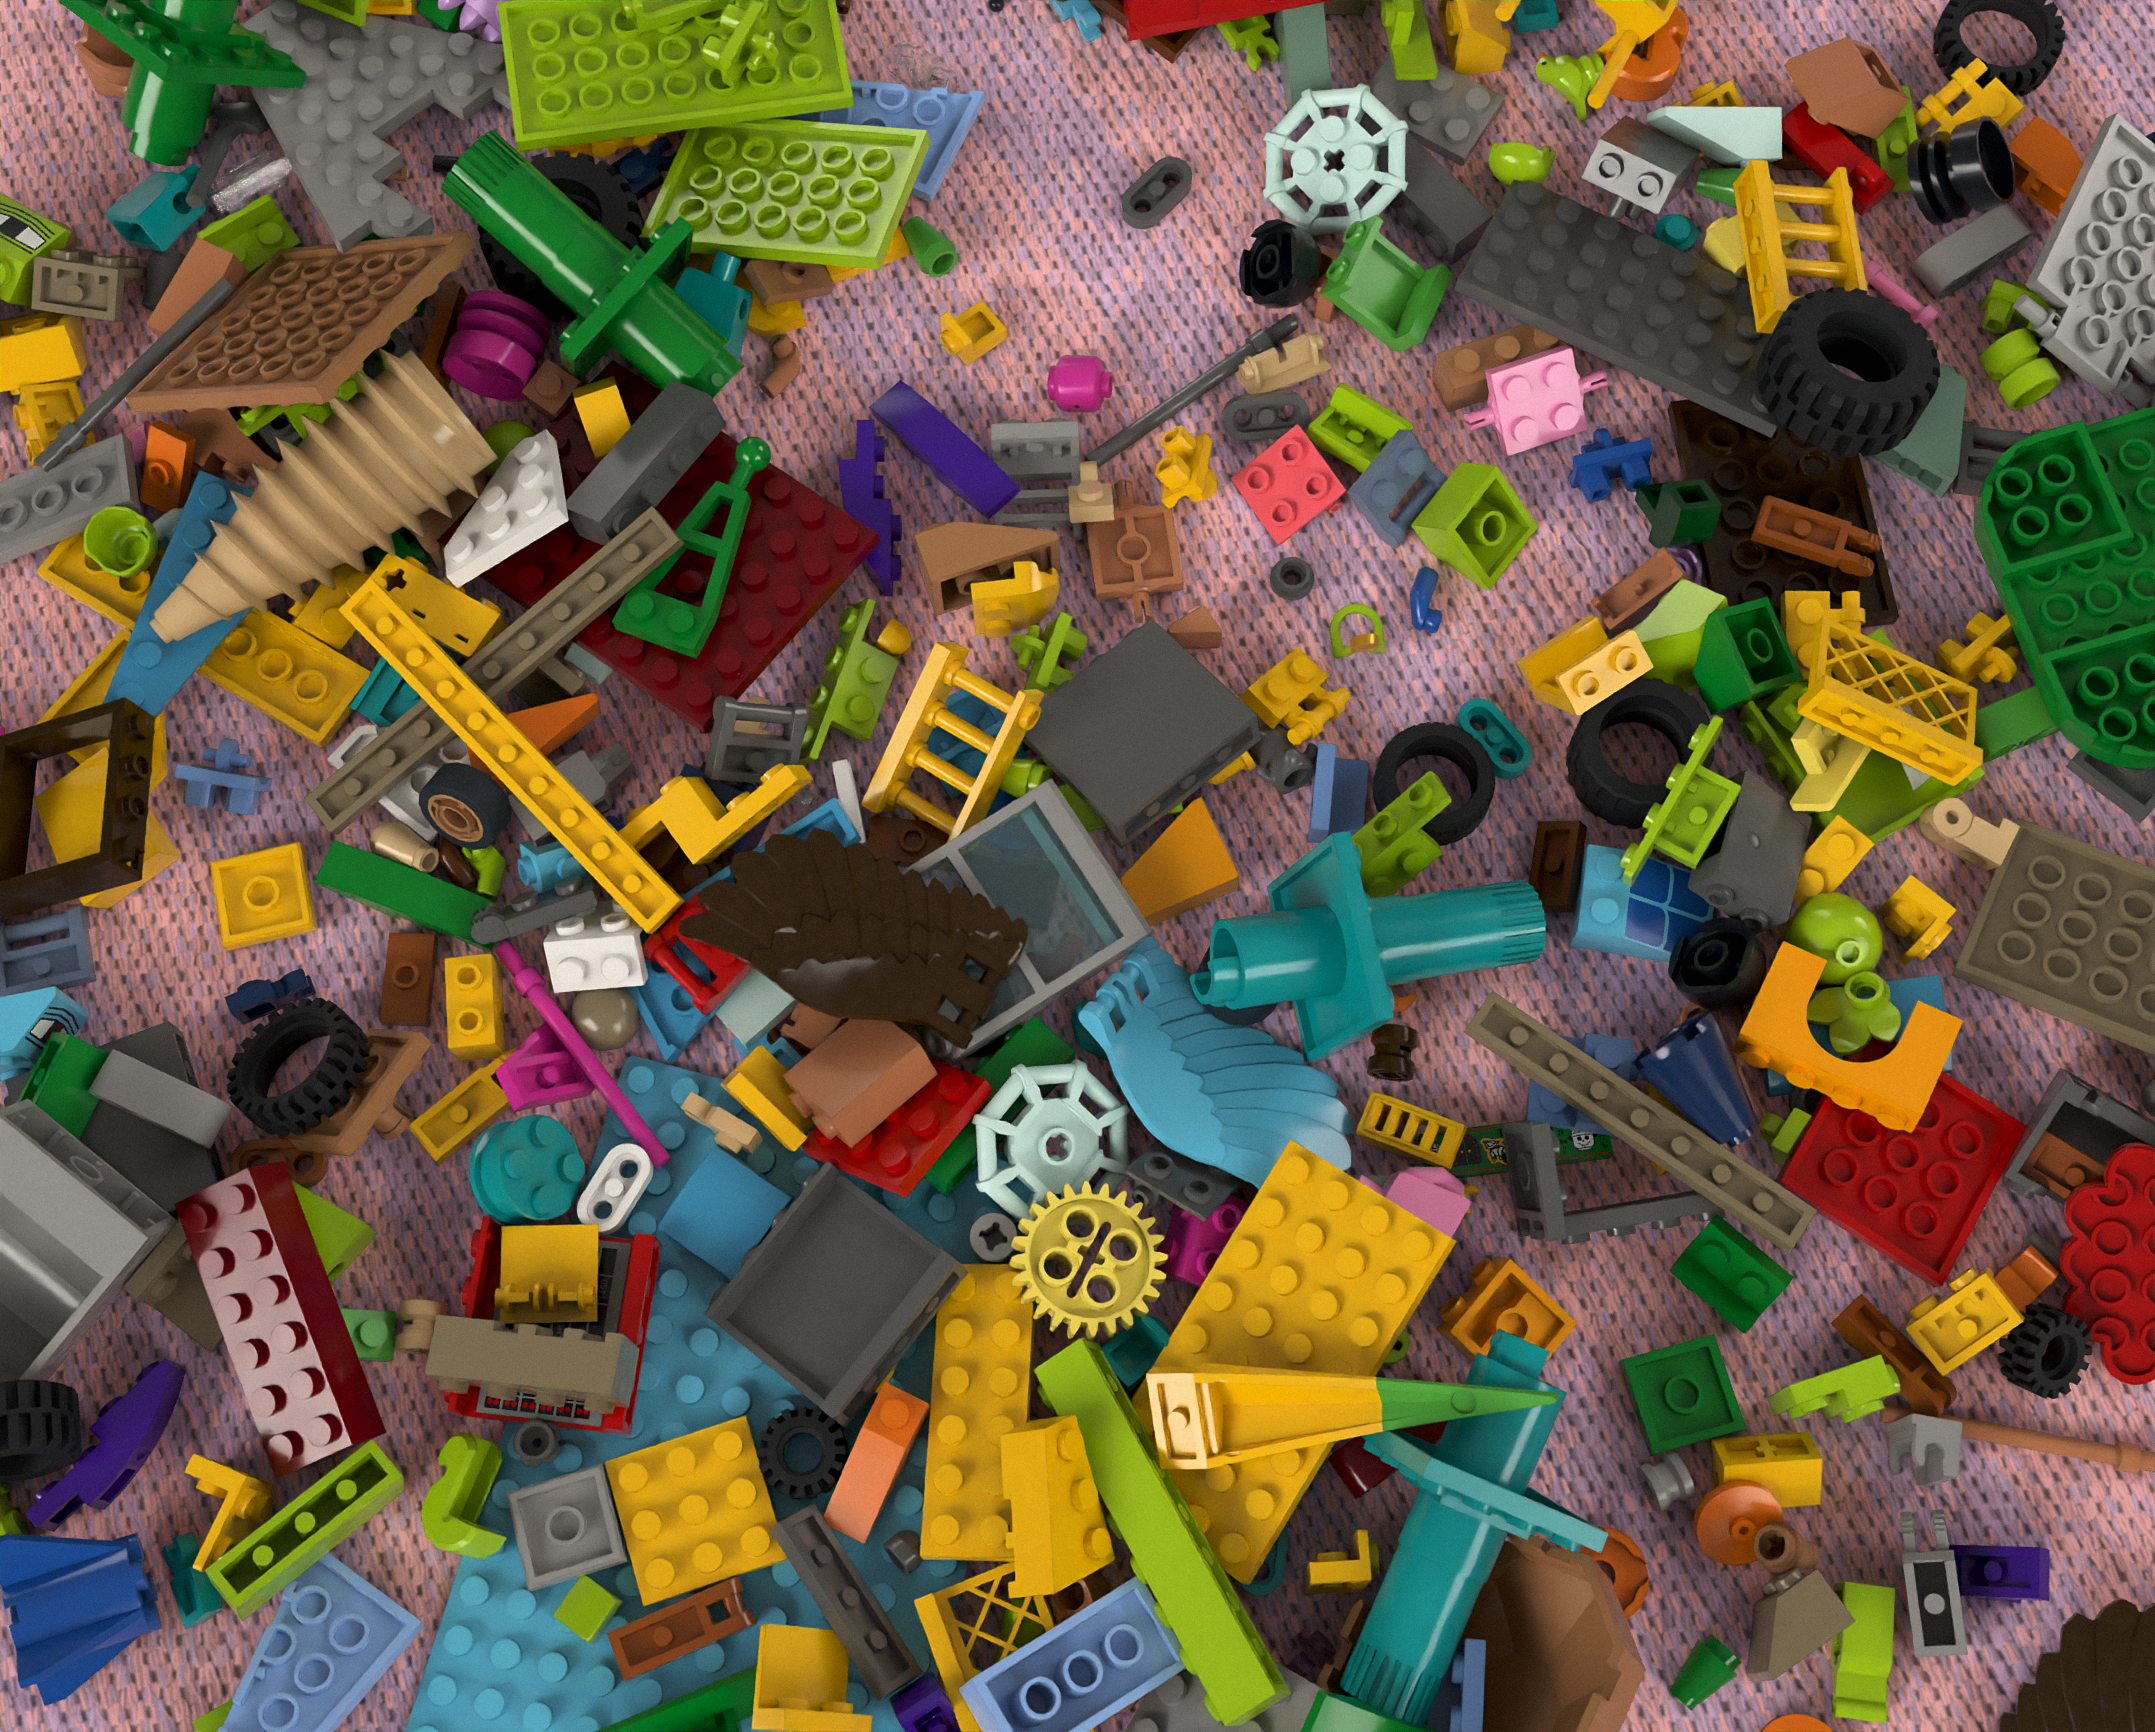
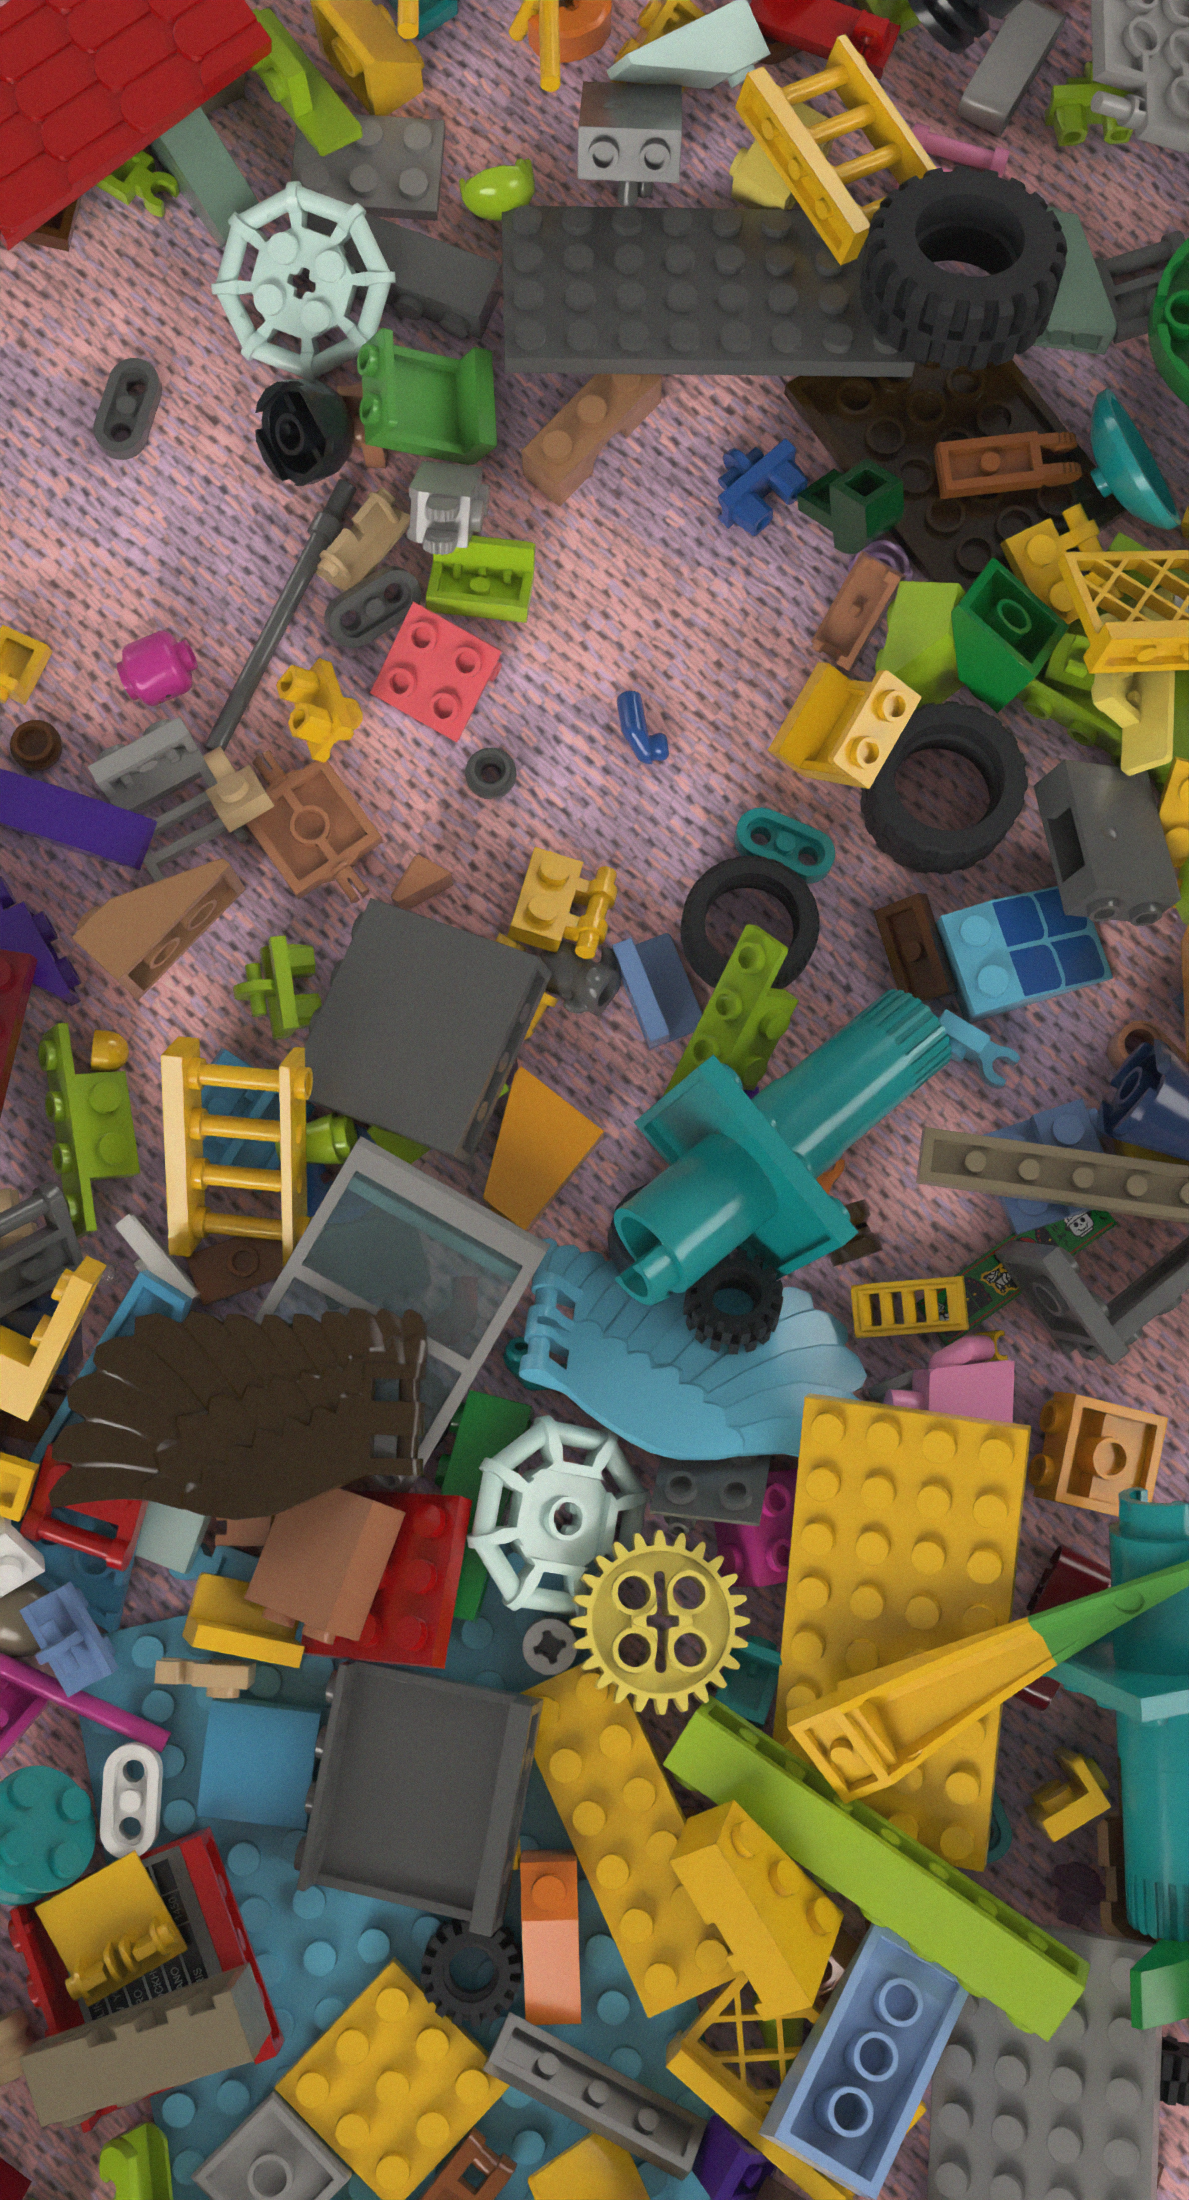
camera: 30 degrees left, 10 degrees up
(524, 1439) = (194, 2119): dark grey plate -> none
(635, 1042) = (69, 1638): none -> medium blue hips
(904, 1550) = (626, 2009): dark grey hinge -> none
(959, 397) = (36, 745): none -> reddish brown plate
(1014, 602) = (223, 948): yellow slope -> none
(1260, 1069) = (728, 1328): none -> black tyre
(1360, 366) = (446, 506): none -> light grey hinge
(1361, 643) = (598, 815): lime piece -> none
(1389, 480) = (540, 617): sand blue plate -> none
(1475, 523) = (650, 618): lime slope -> none
(1536, 400) = (647, 451): bright pink plate -> none
(1565, 958) = (976, 1045): none -> medium azure plate
(1571, 77) = (504, 63): lime animal -> none
(1676, 231) = (698, 189): teal plate -> none
(1691, 811) = (1034, 834): lime bracket -> none
(1718, 184) = (718, 112): bright green cone -> none
(1719, 965) = (1130, 977): black cylinder -> none
(1914, 581) = (1128, 465): none -> teal dish
(2021, 372) = (1121, 174): lime wheel -> none

